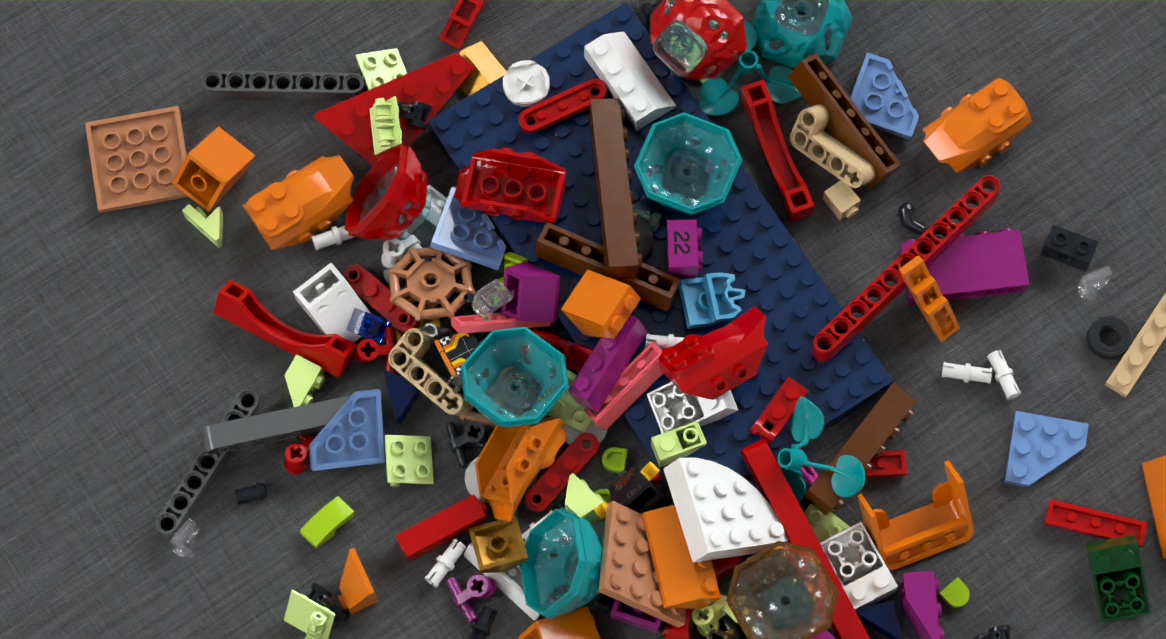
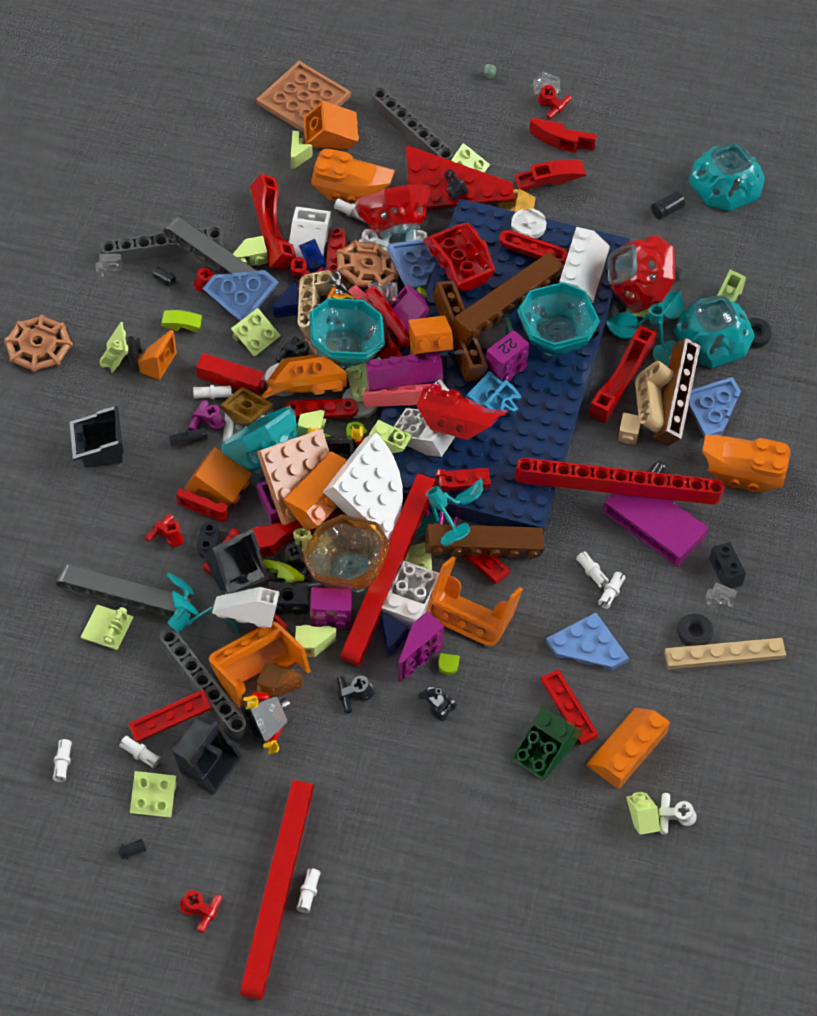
camera: 45 degrees right, 15 degrees down
(385, 124) = (430, 173): yellowish green hinge -> none
(528, 318) = (393, 321): none -> red plate
(929, 298) = (613, 508): orange slope -> none

